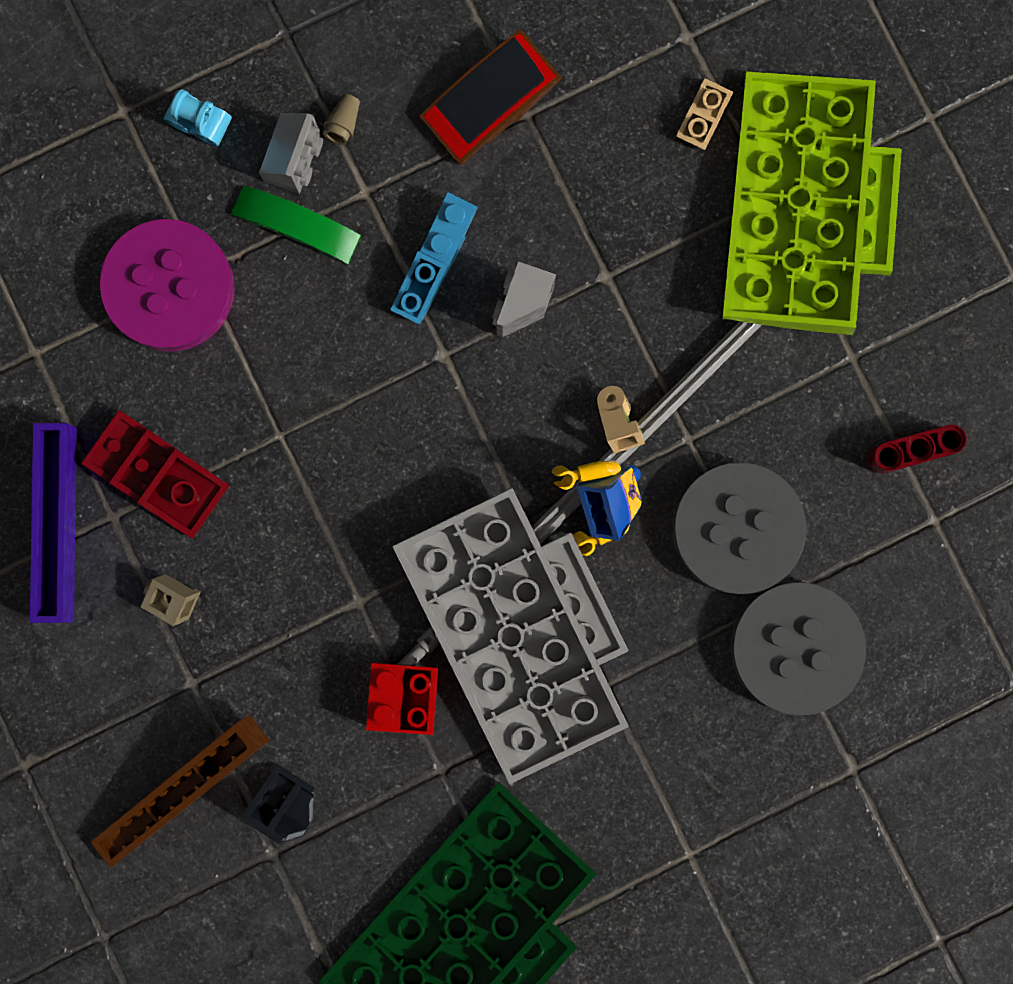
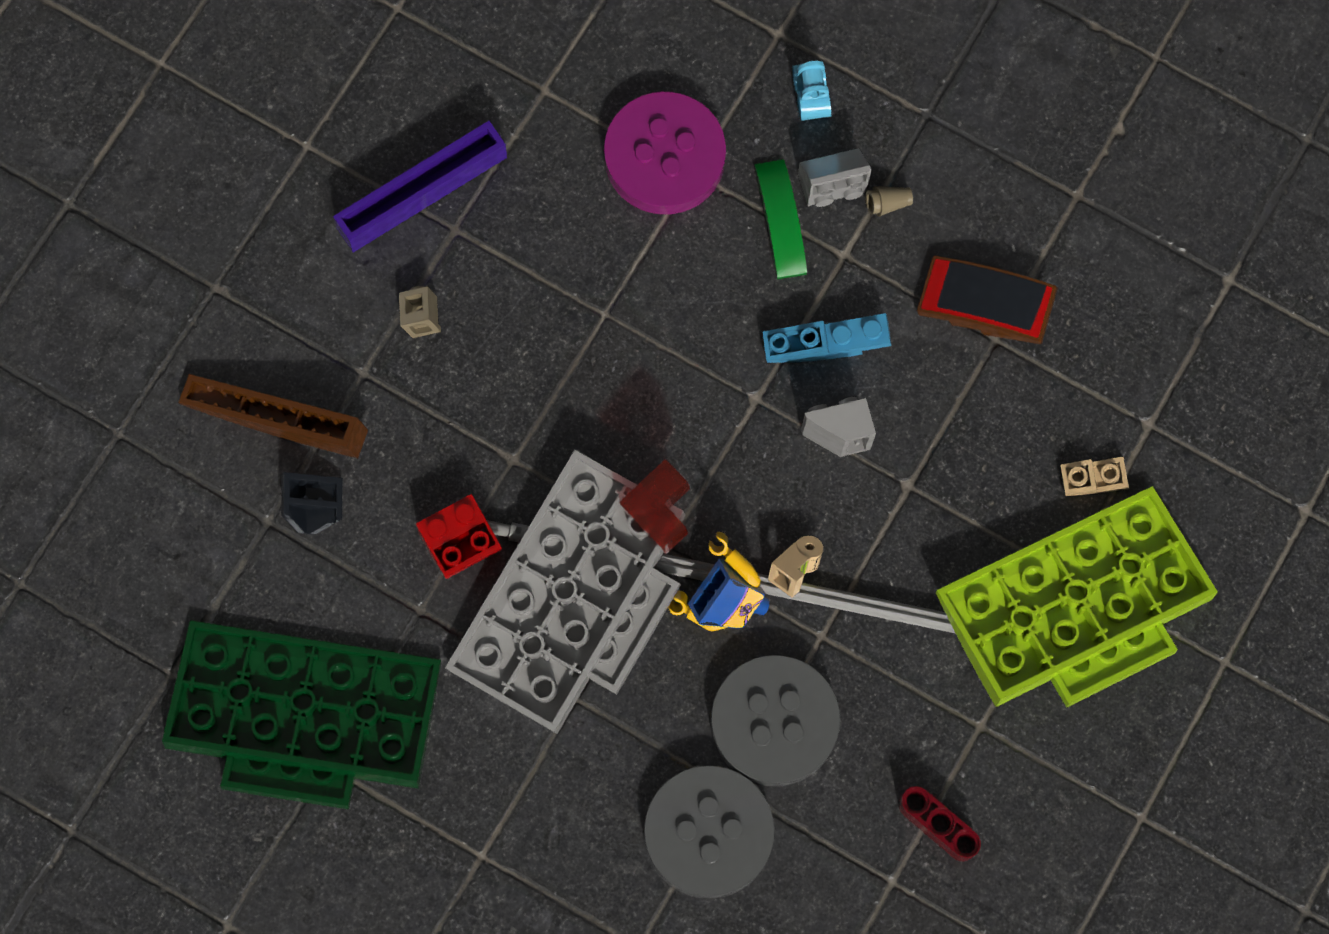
camera: 55 degrees right, 10 degrees down
(155, 474) = (510, 238): dark red slope -> none
(493, 518) = (650, 504): none -> clear red brick

